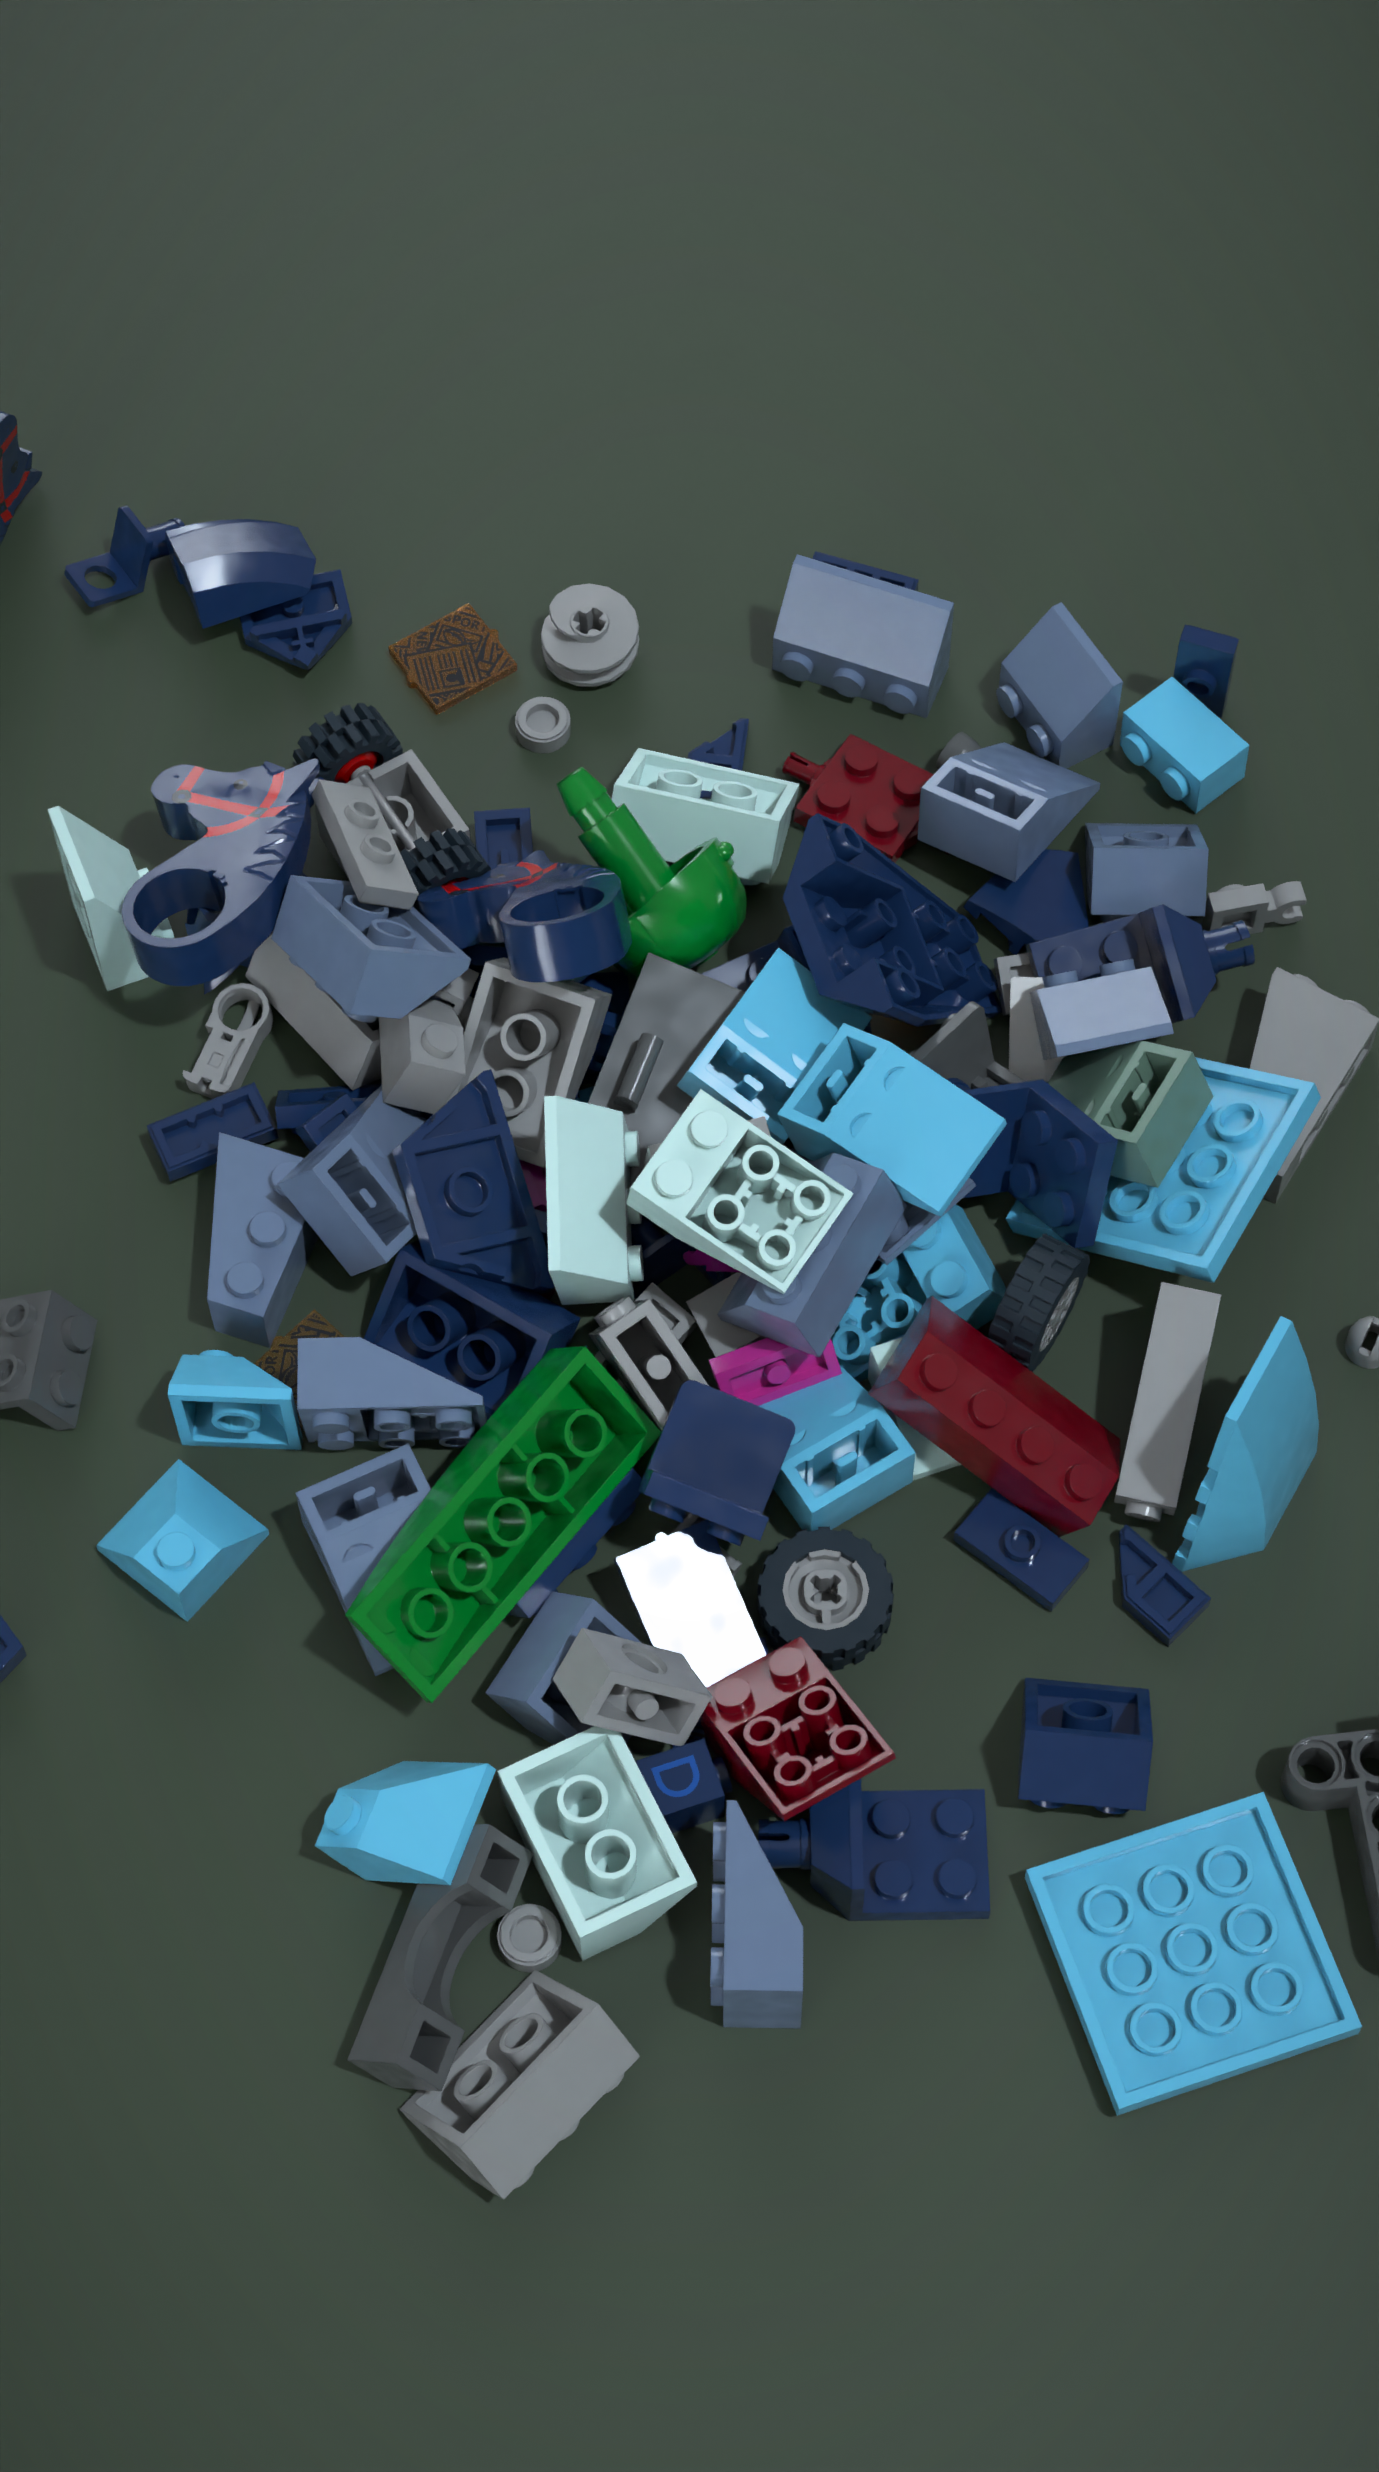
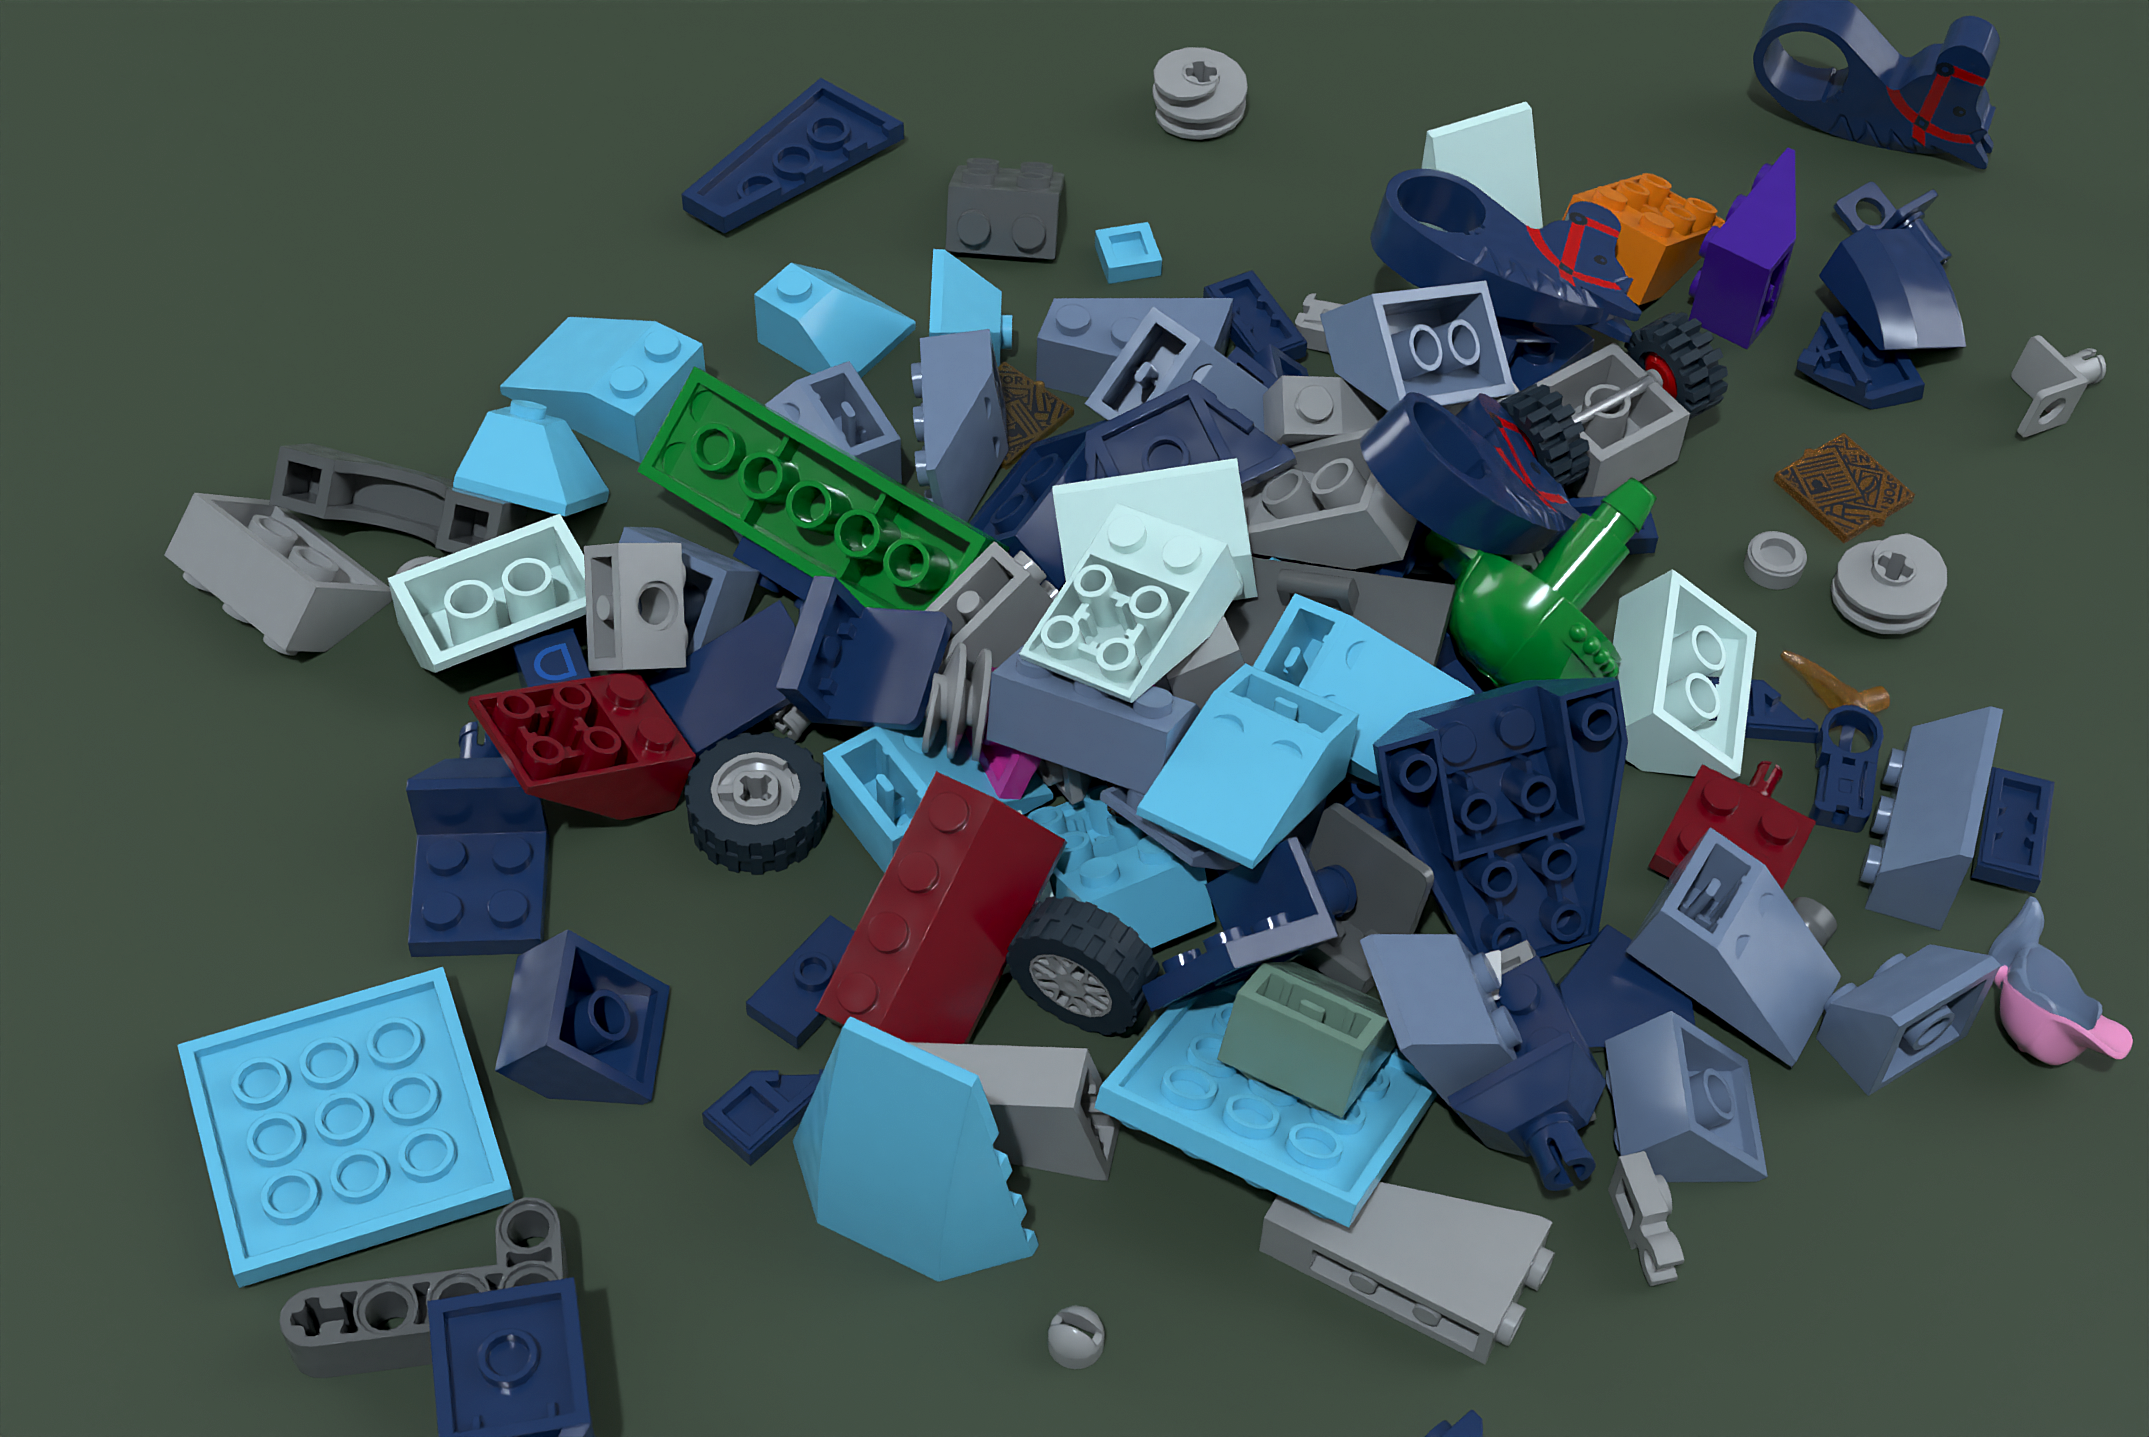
camera: 85 degrees right, 10 degrees down
(93, 1248) = (1128, 253): none -> medium azure tile
(106, 769) = (1657, 232): none -> orange slope
(180, 671) = (1748, 257): none -> dark purple slope
(251, 1764) = (608, 378): none -> medium azure slope
(348, 466) = (2053, 383): none -> light grey bracket
(365, 845) = (1544, 352): light grey plate -> none
(713, 693) = (1832, 690): none -> clear orange bar
(762, 1956) = (384, 722): sand blue slope -> none
(777, 1374) = (960, 702): none -> light grey piece
(803, 706) = (1845, 777): none -> dark blue piece
(1028, 595) = (2043, 1000): none -> hair
(1183, 745) = (1865, 1148): medium azure brick -> none
(1206, 666) = (1966, 1153): dark blue plate -> none

